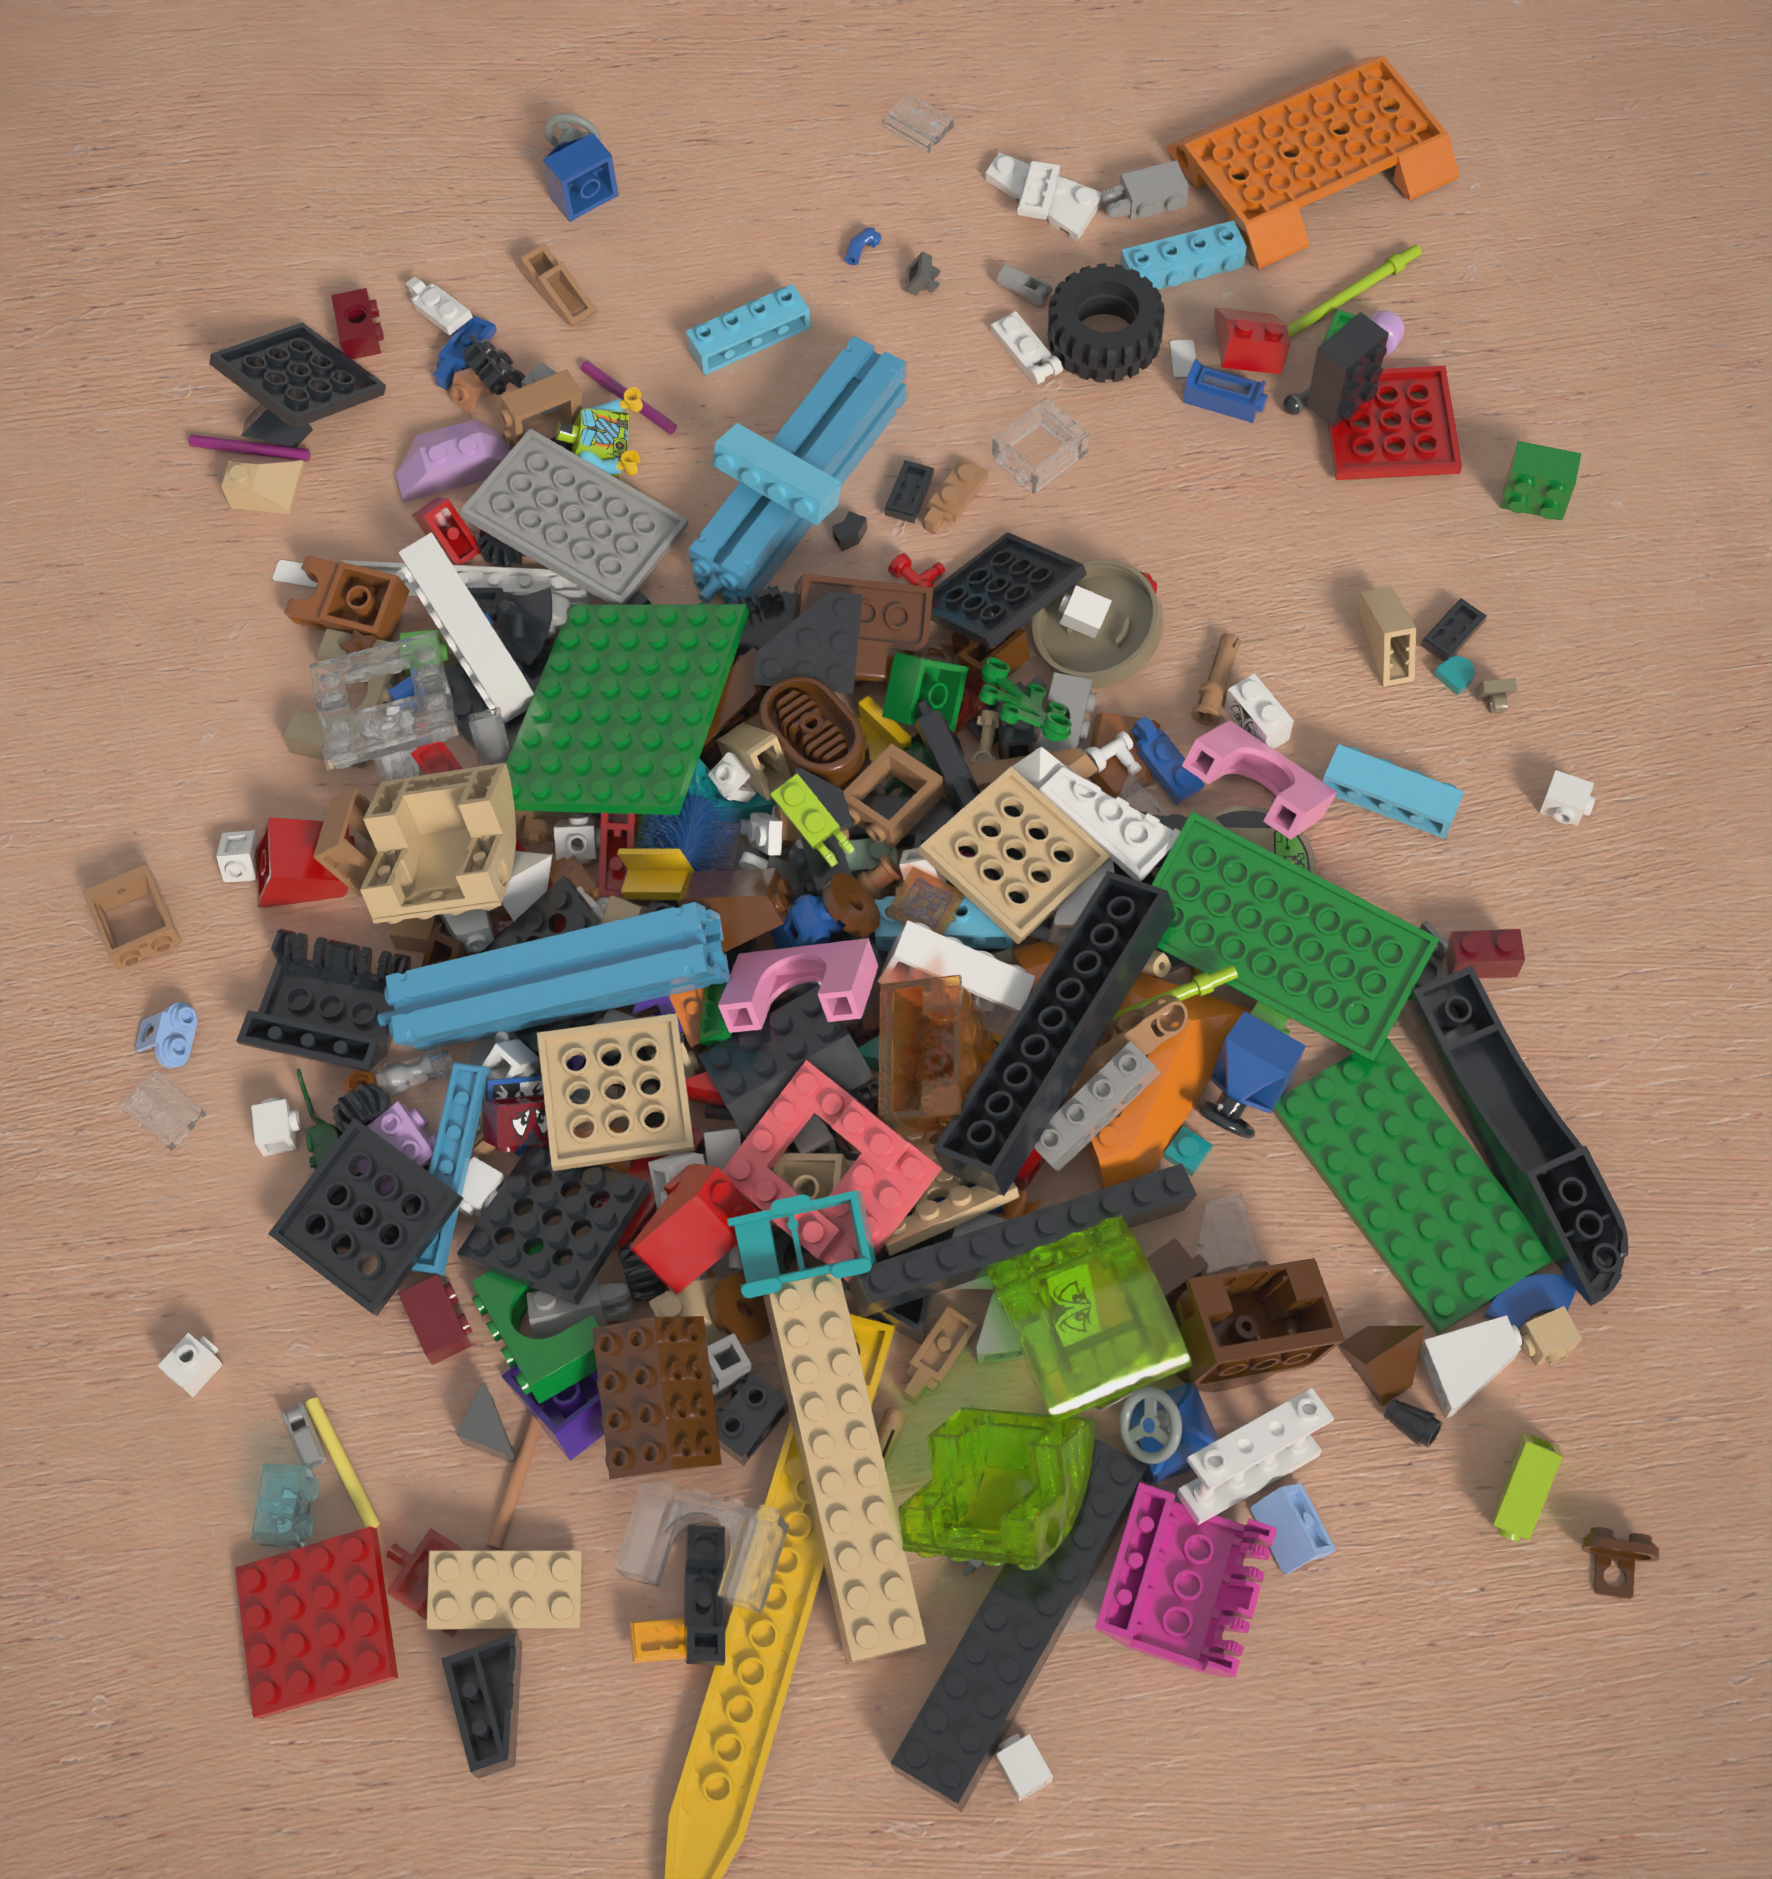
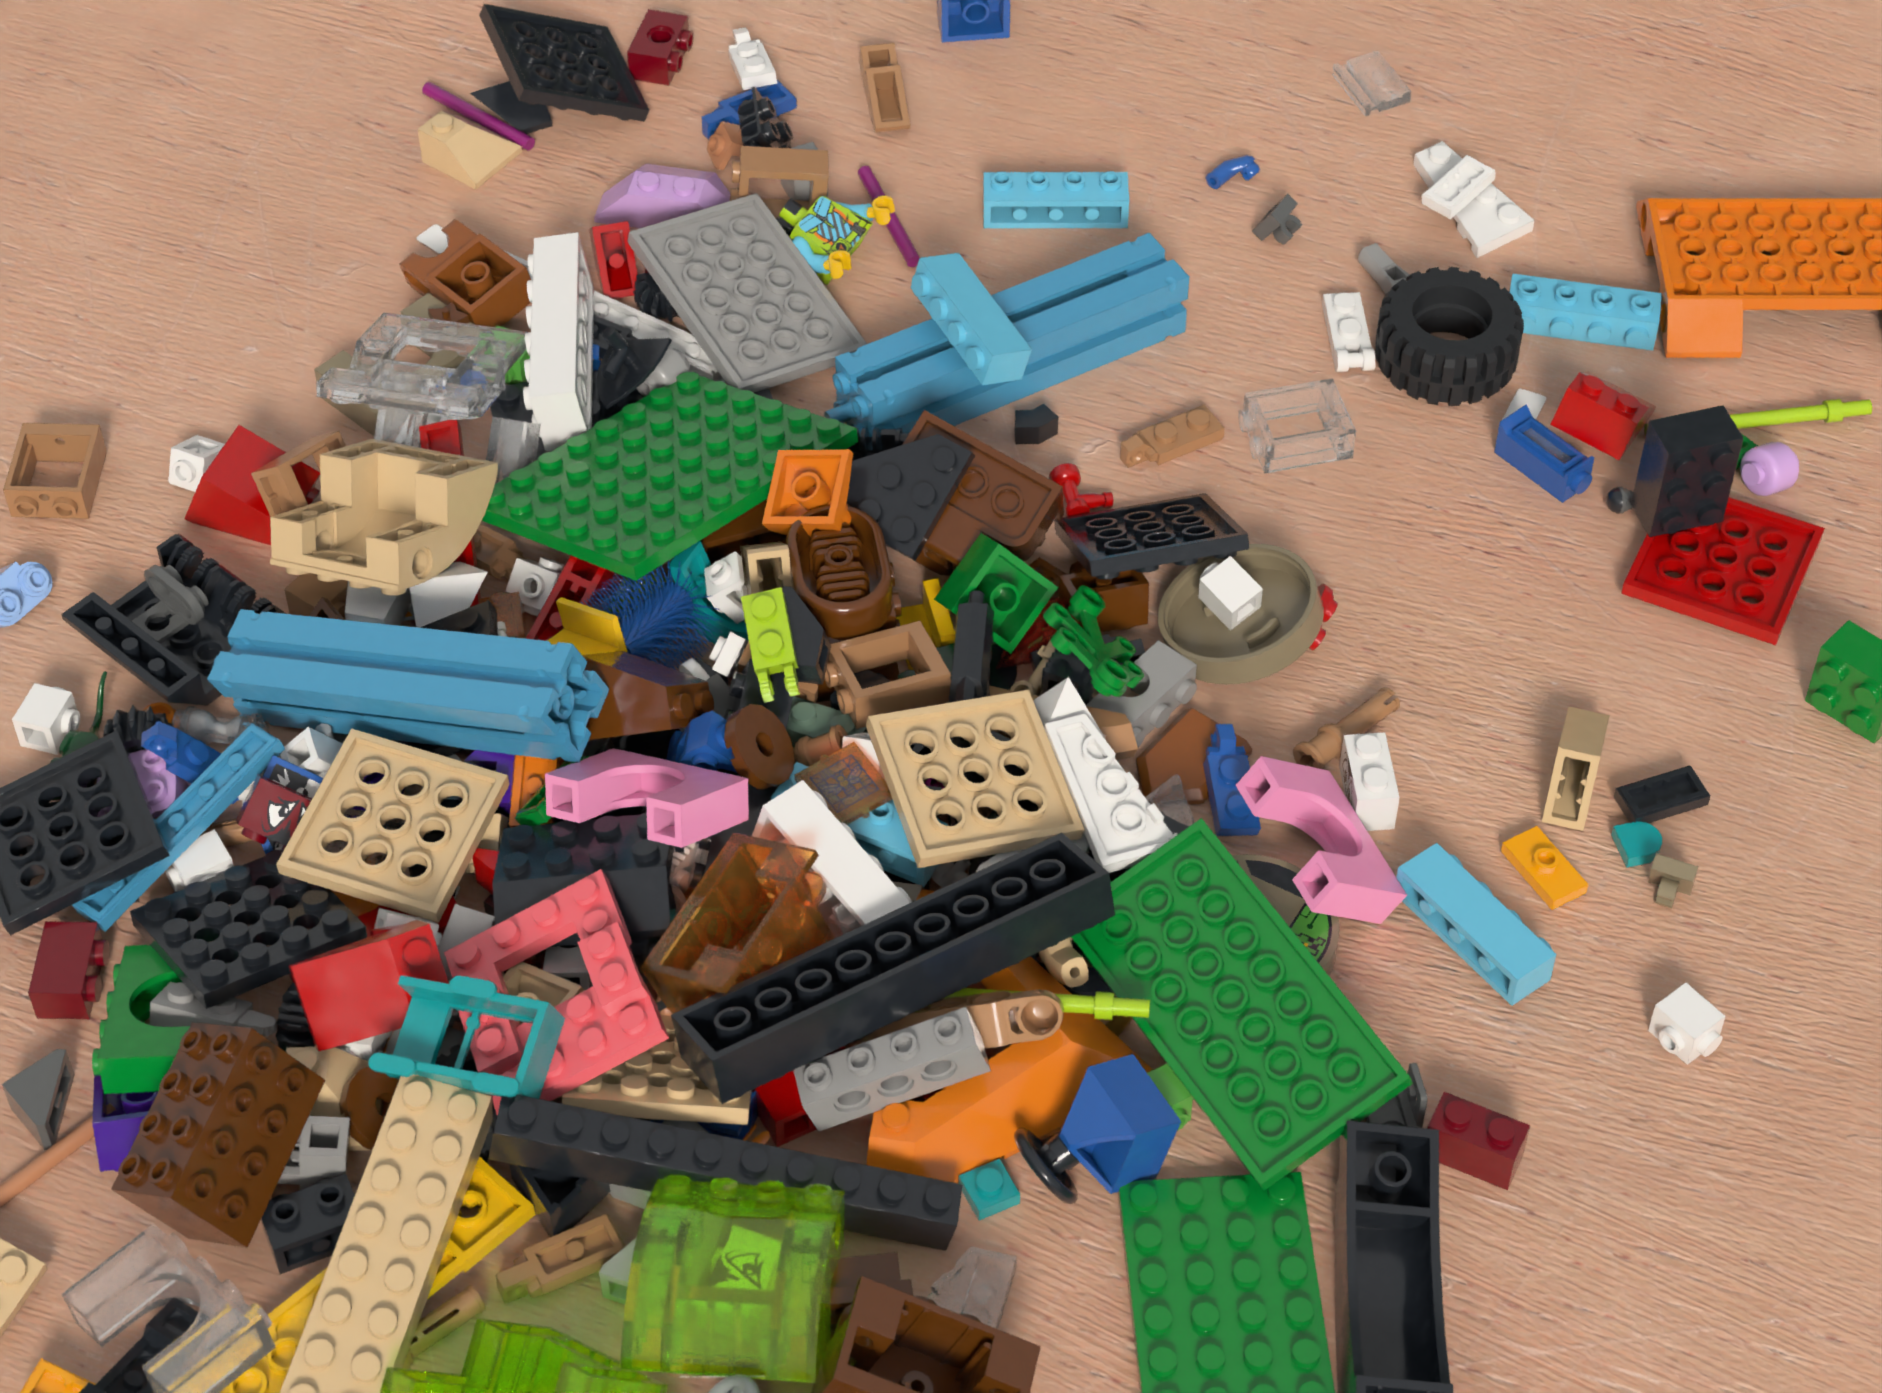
camera: 25 degrees right, 15 degrees down
(320, 984) = (180, 601): none -> dark grey bracket
(415, 1109) = (181, 752): none -> blue hinge
(751, 673) = (805, 482): none -> orange slope
(909, 491) = (1124, 413): black plate -> none
(1118, 747) = (1184, 745): white piece -> none
(1147, 192) = (1583, 236): light grey hinge -> none
(1406, 722) = (1544, 867): none -> light orange plate

